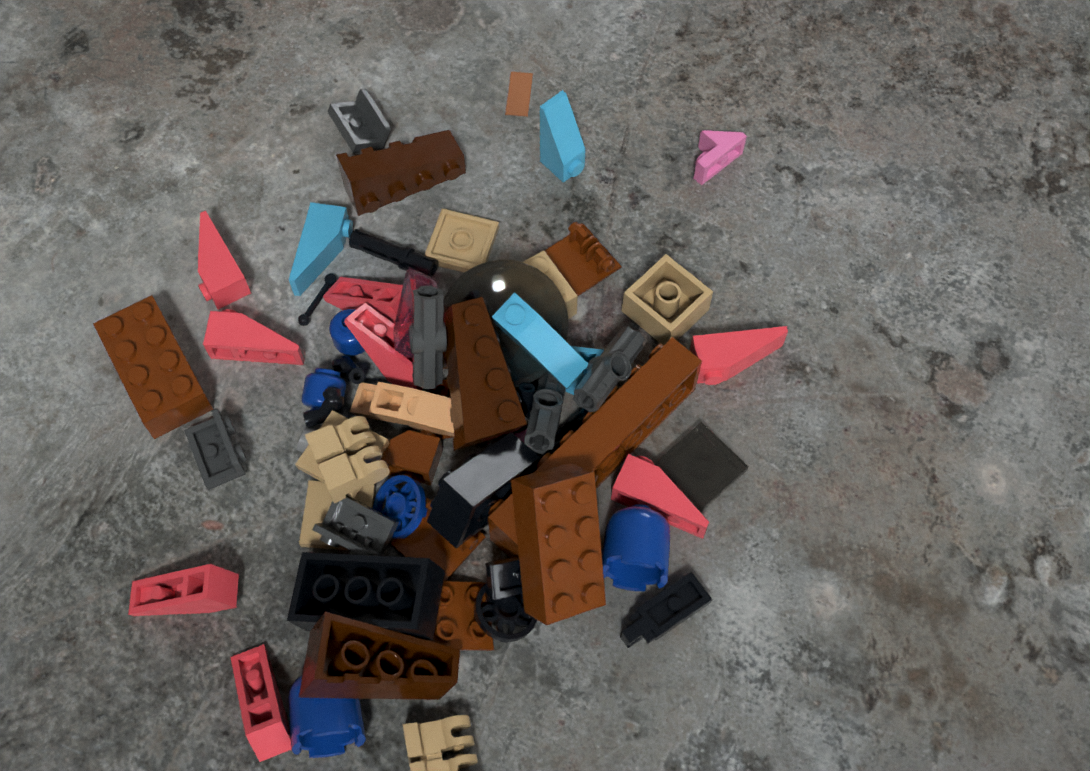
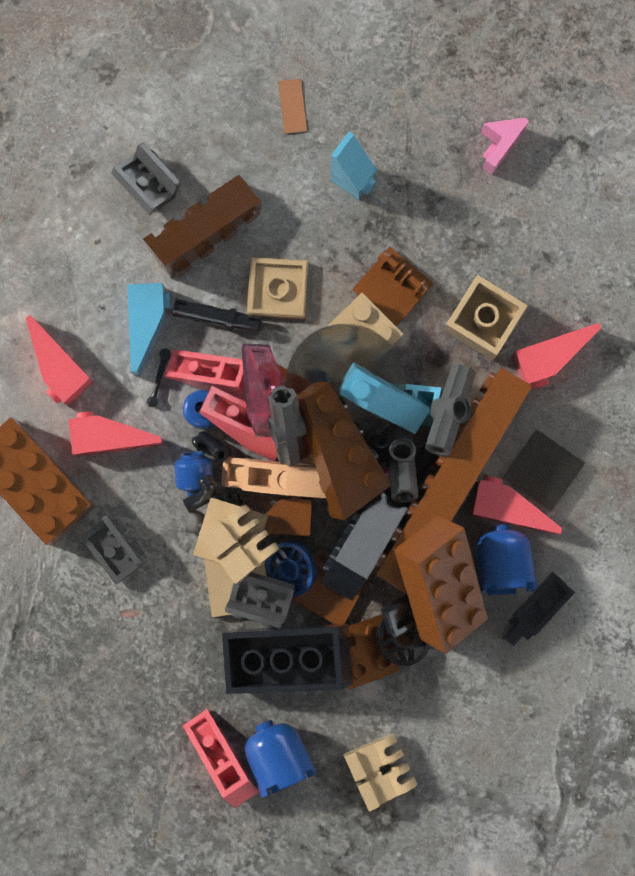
camera: 10 degrees left, 20 degrees up
(185, 592) = (127, 683): coral slope -> none
(374, 663) = (305, 718): reddish brown wedge -> none

